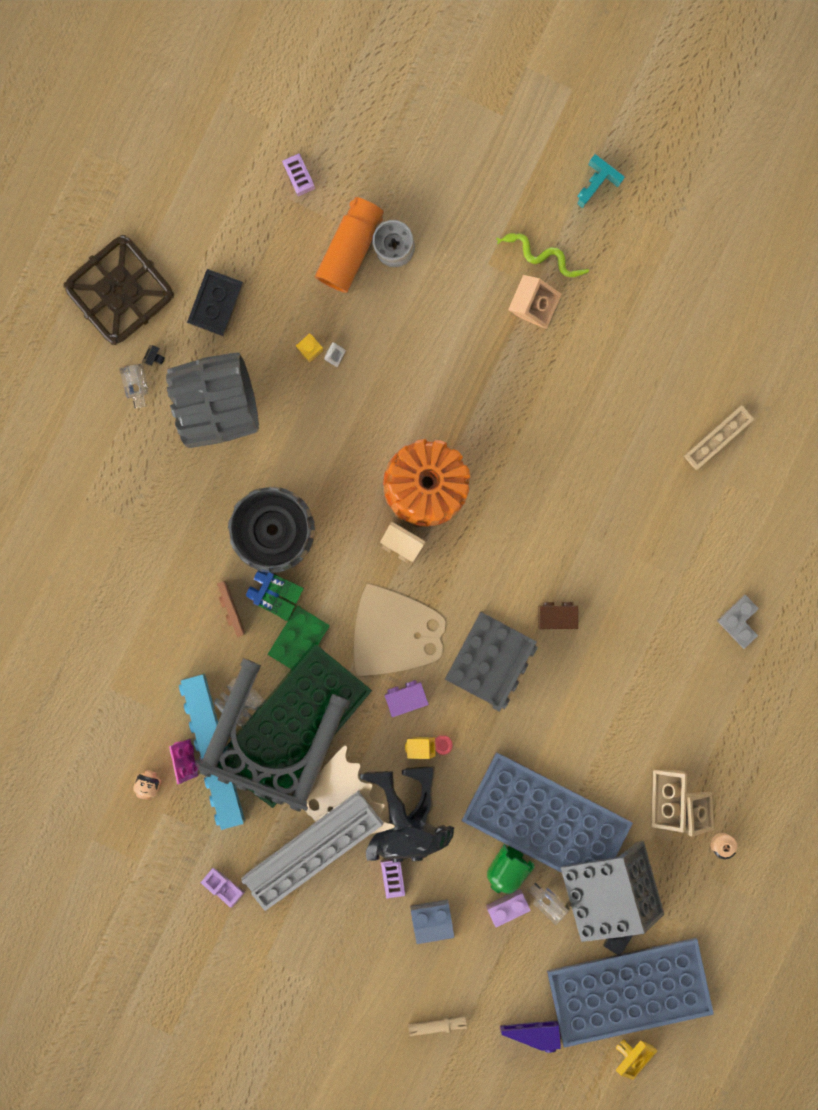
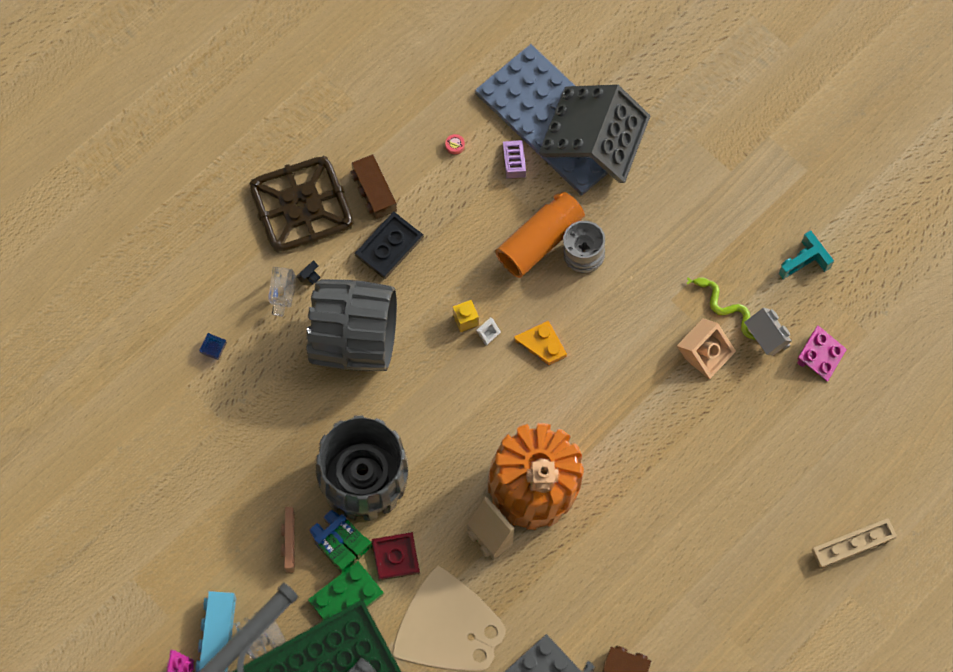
camera: 20 degrees right, 20 degrees down
(94, 456) = (213, 346): none -> clear blue plate
(179, 251) = (373, 187): none -> reddish brown brick
(238, 179) = (455, 144): none -> coral tile
(322, 119) = (526, 98): none -> sand blue plate
(327, 589) = (395, 556): none -> dark red tile
(365, 121) = (597, 124): none -> dark grey bracket
(387, 347) = (543, 343): none -> light orange wing
(433, 500) = (542, 482): none -> light nougat brick
(586, 268) = (768, 331): none -> light grey brick
(639, 270) = (821, 353): none -> dark pink hinge

